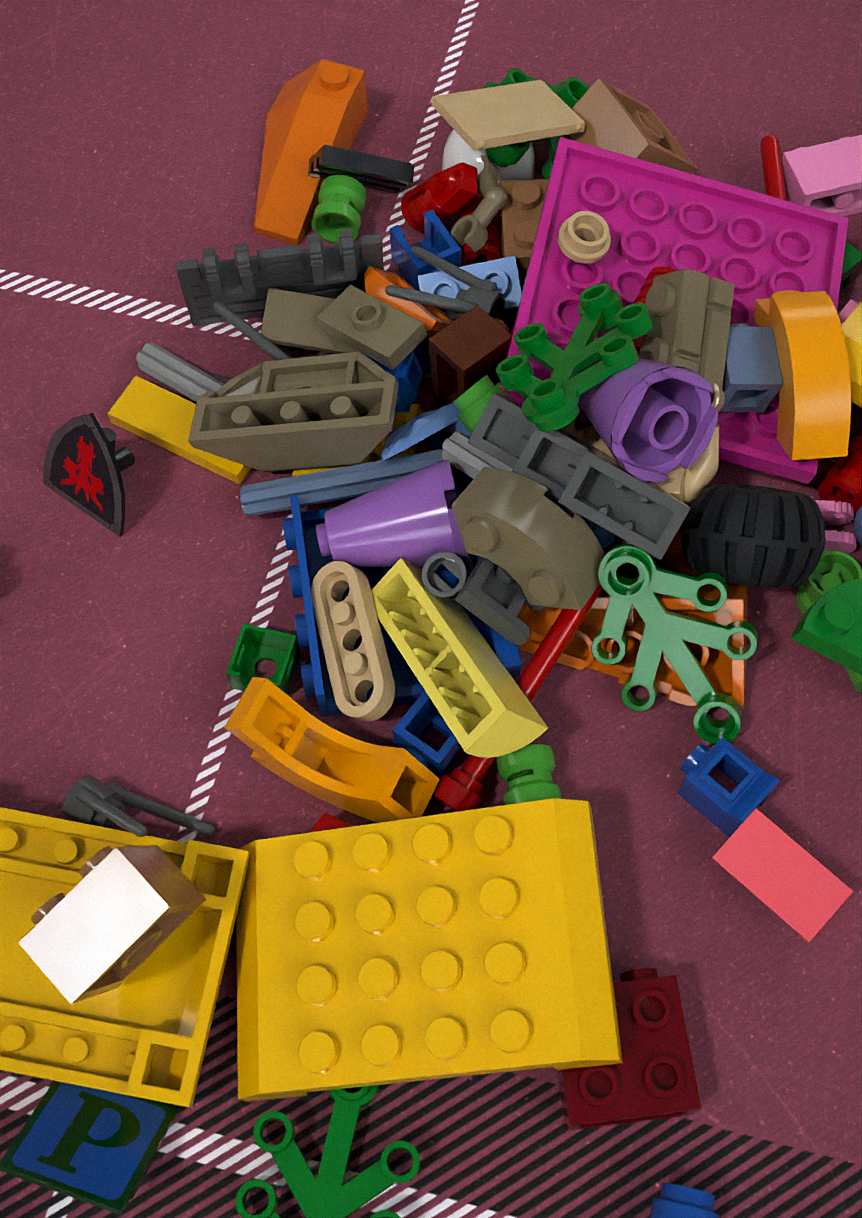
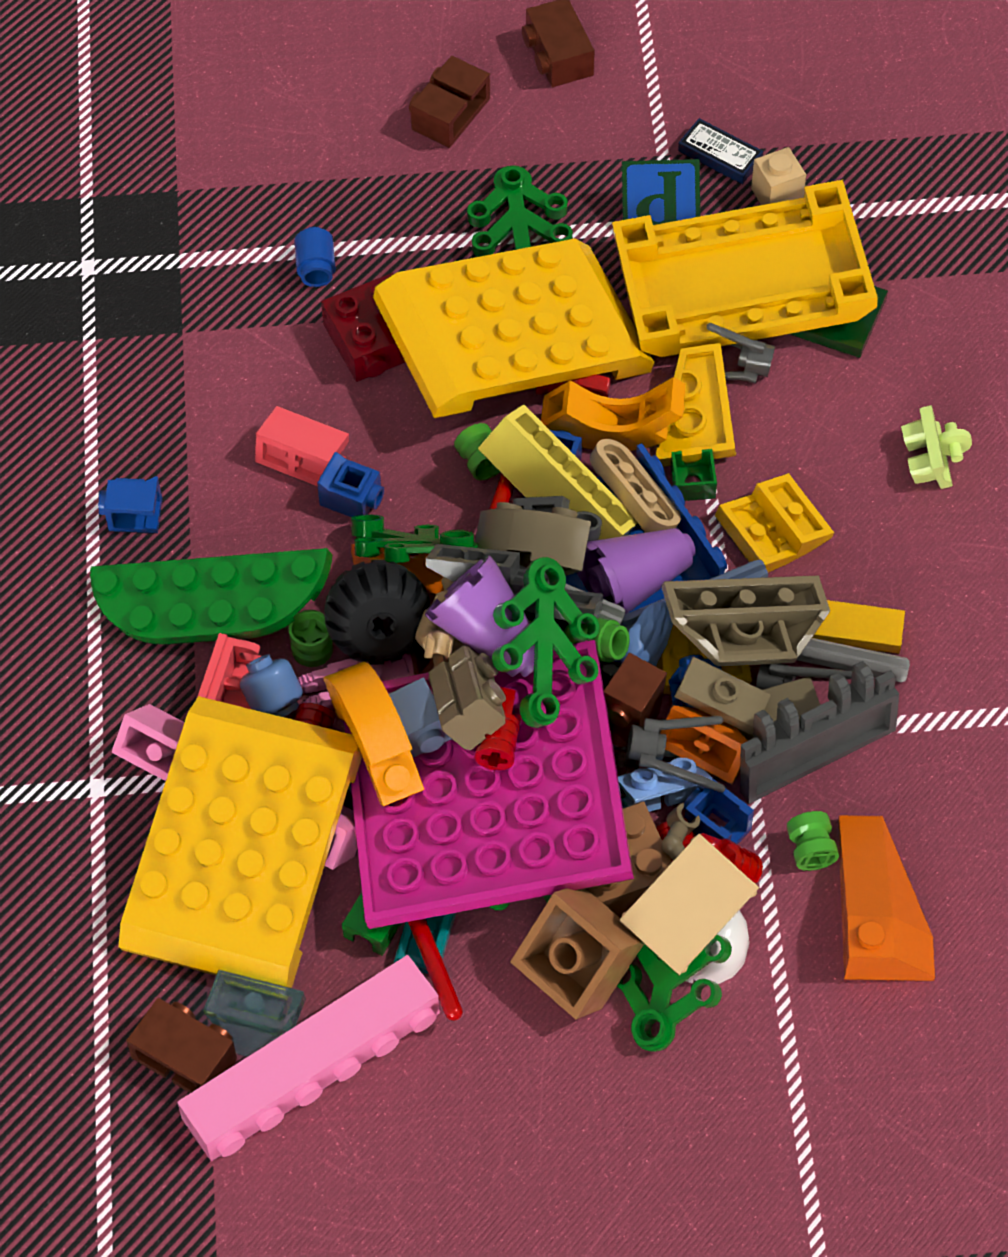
camera: 160 degrees right, 5 degrees down
(88, 470) = (885, 545): shield -> none
(110, 920) = (692, 259): brick -> none
(196, 571) = (774, 523): none -> yellow slope
(200, 760) = (706, 411): none -> yellow wing
(368, 169) = (804, 862): black tile -> none
(587, 227) = (570, 763): tan plate -> none

